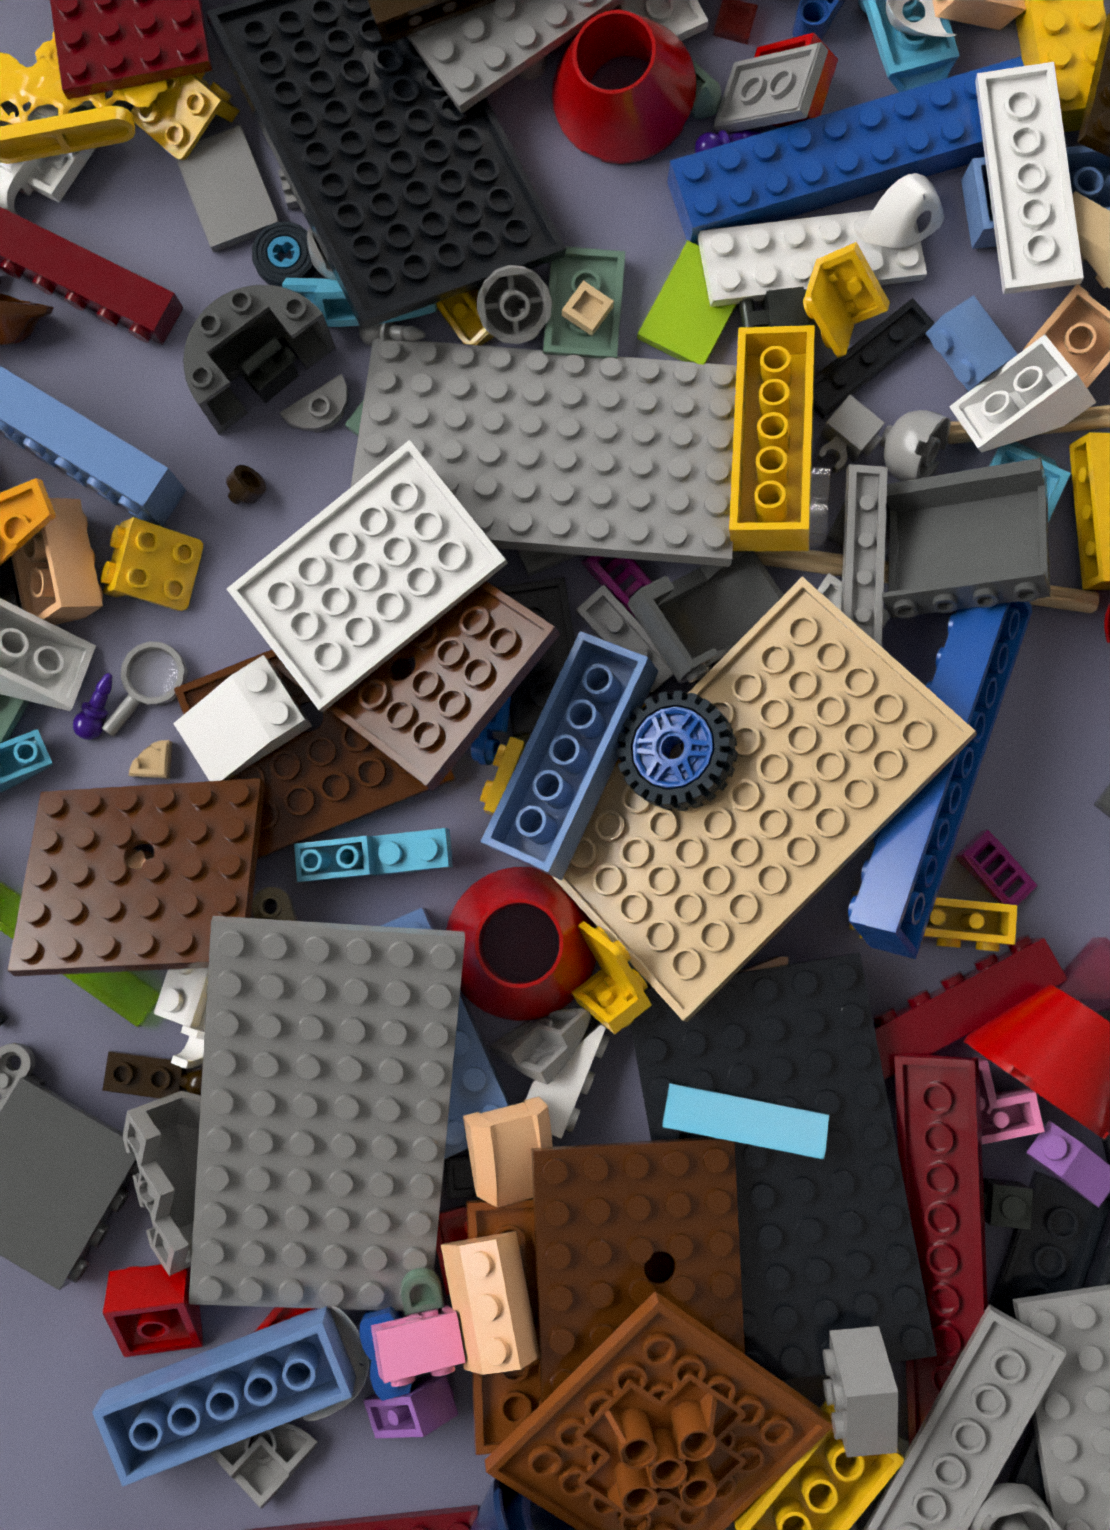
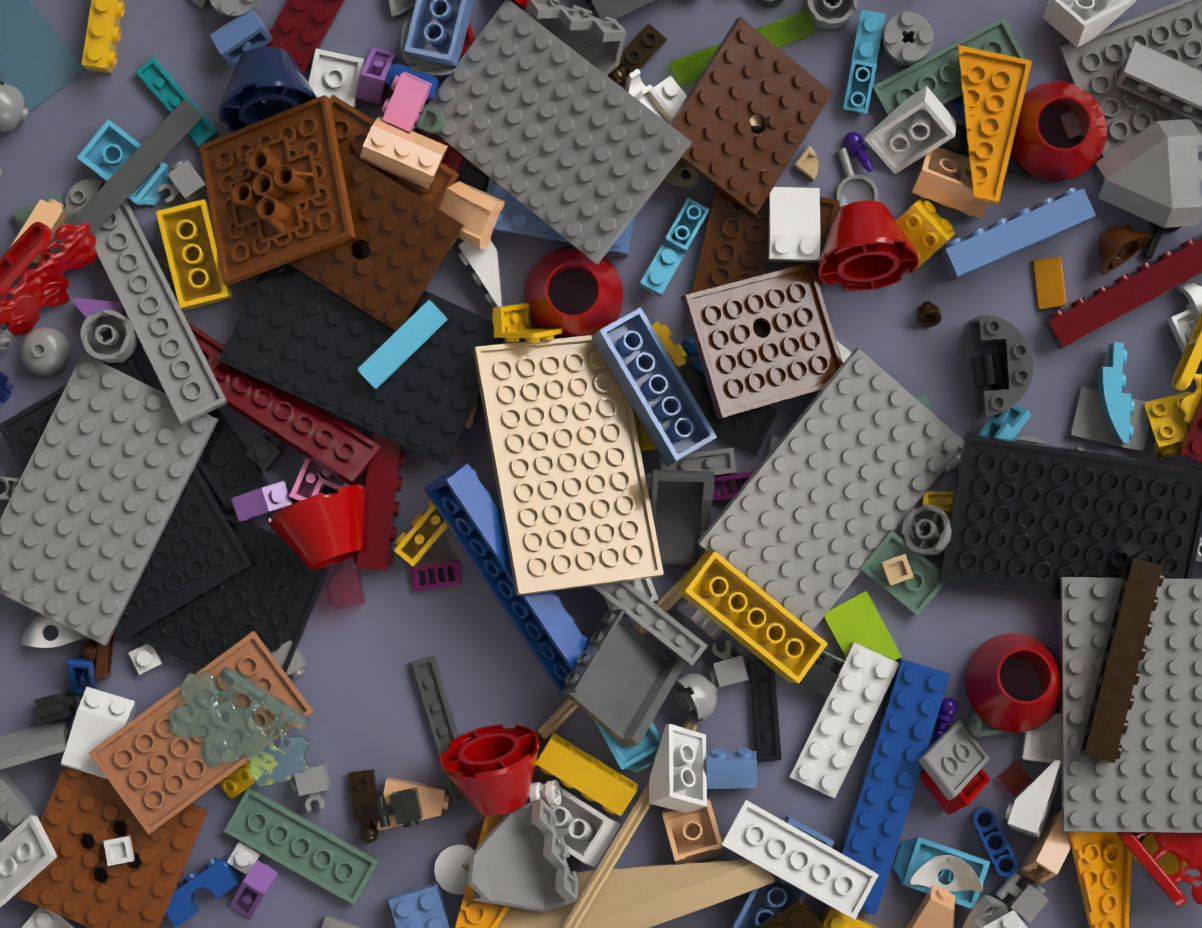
camera: 125 degrees right, 5 degrees up
(106, 367) = (1049, 283): none -> light orange slope
(189, 613) = (866, 248): none -> red cone
(204, 191) = (1114, 404): none -> medium azure slope
(282, 238) = (1054, 413): black bush -> none
(319, 408) = (945, 385): light grey plate -> none
(366, 576) = (822, 341): white plate -> none
(447, 1465) = (336, 75): none -> white plate
(543, 1046) = (511, 269): light grey brick -> none
(701, 766) = (598, 444): wheel -> none
(843, 294) = (808, 712): yellow bracket -> none
(861, 1392) = (233, 307): light grey brick -> none
(897, 211) = (834, 782): white piece -> none

